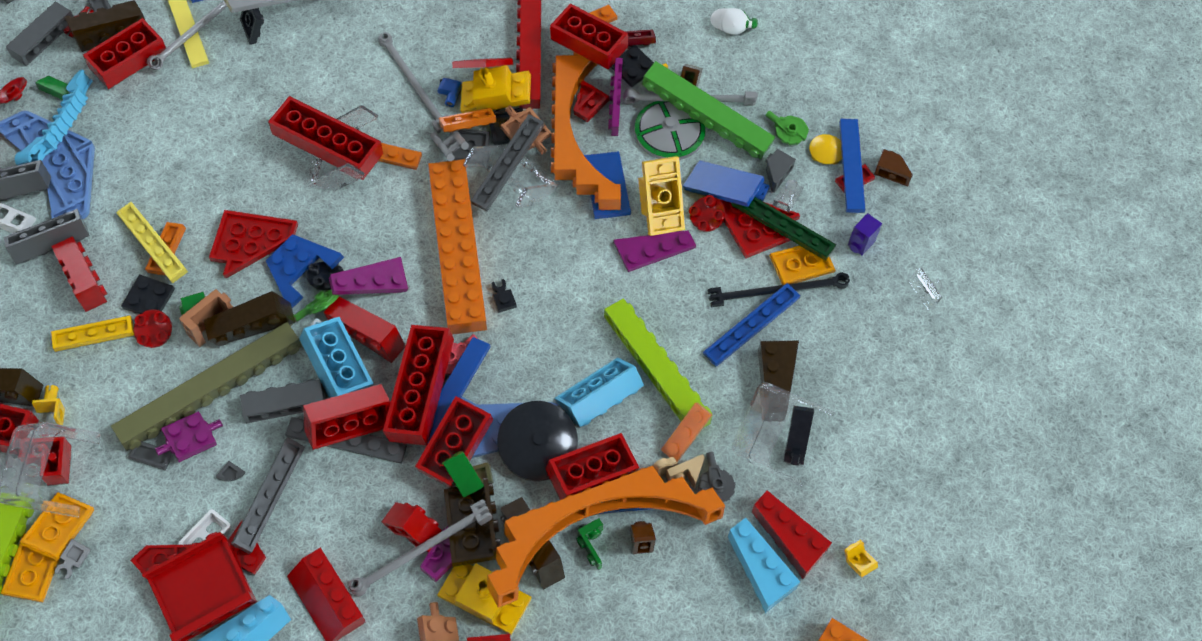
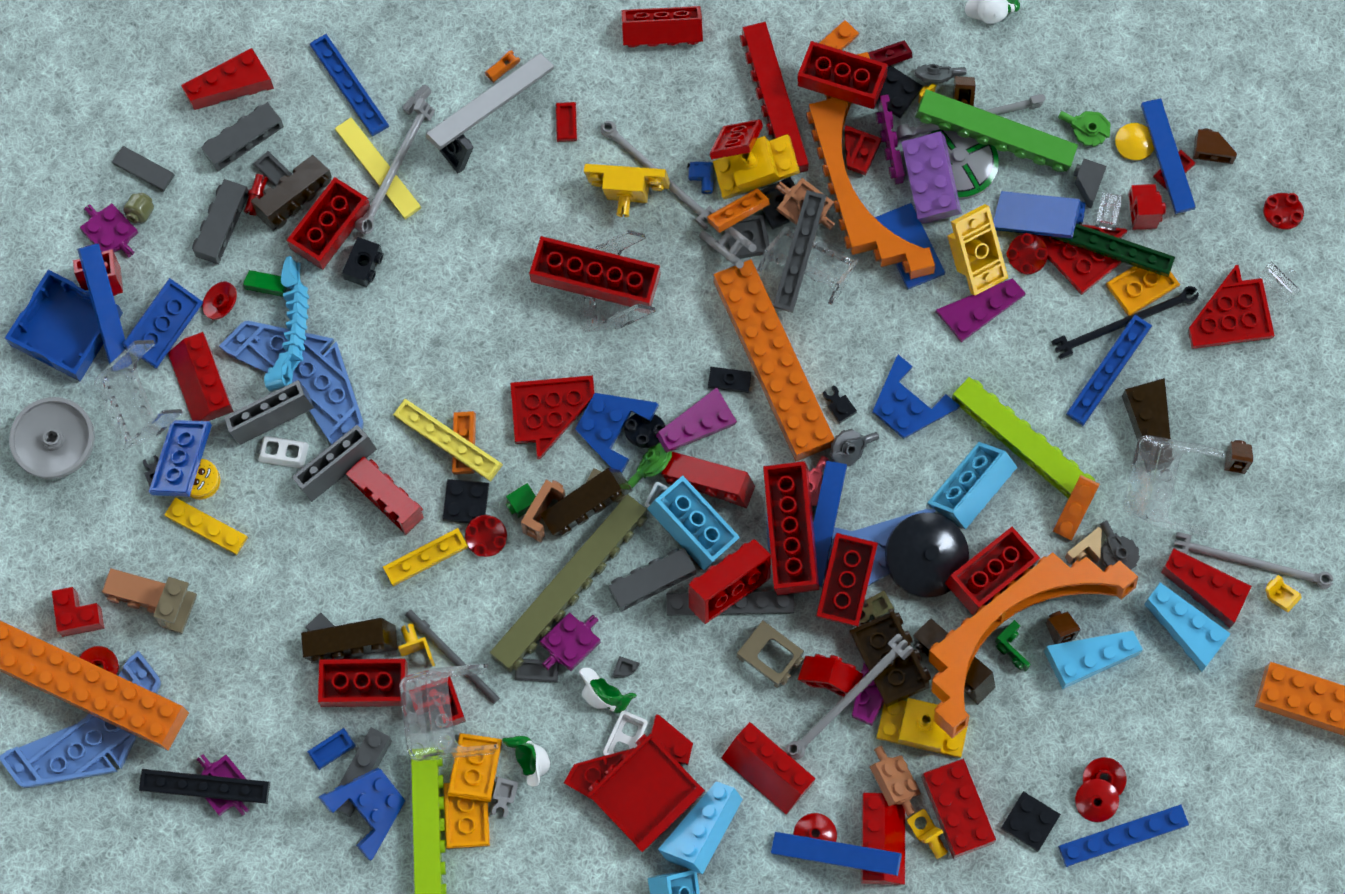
camera: 10 degrees left, 10 degrees up
(66, 393) = (424, 628): none -> dark grey bar
(111, 529) = (530, 757): none -> hair
(141, 89) = (362, 251): none -> black brick
(197, 488) = (601, 694): none -> hair
(268, 496) = (675, 681): dark grey plate -> none
(353, 27) = (566, 121): none -> red tile
(356, 477) = (757, 641): none -> dark tan window
(382, 78) = (626, 183): none -> yellow brick
(400, 156) = (675, 268): orange plate -> none
(414, 253) = (729, 379): none -> black plate
(463, 474) = (868, 611): green slope -> none
(499, 331) = (849, 446): none -> dark grey piece
(559, 315) = (904, 410): none -> blue wing
(640, 131) = (931, 177): none -> medium lavender brick
(658, 570) = (1090, 656): none -> medium azure wedge
(664, 464) = (1063, 547): tan tile -> none
(671, 59) = (937, 74): none -> dark grey piece
(798, 435) = (1190, 482): black hinge -> none
(821, 200) = (1146, 206): none -> red brick
(849, 426) = (1238, 457): none -> reddish brown slope
(864, 234) = (1202, 238): dark purple brick -> none
(876, 305) = (1233, 314): none -> red wing
(896, 553) = (1314, 578): none -> light grey hinge
(943, 232) = (1283, 210): none -> red dish

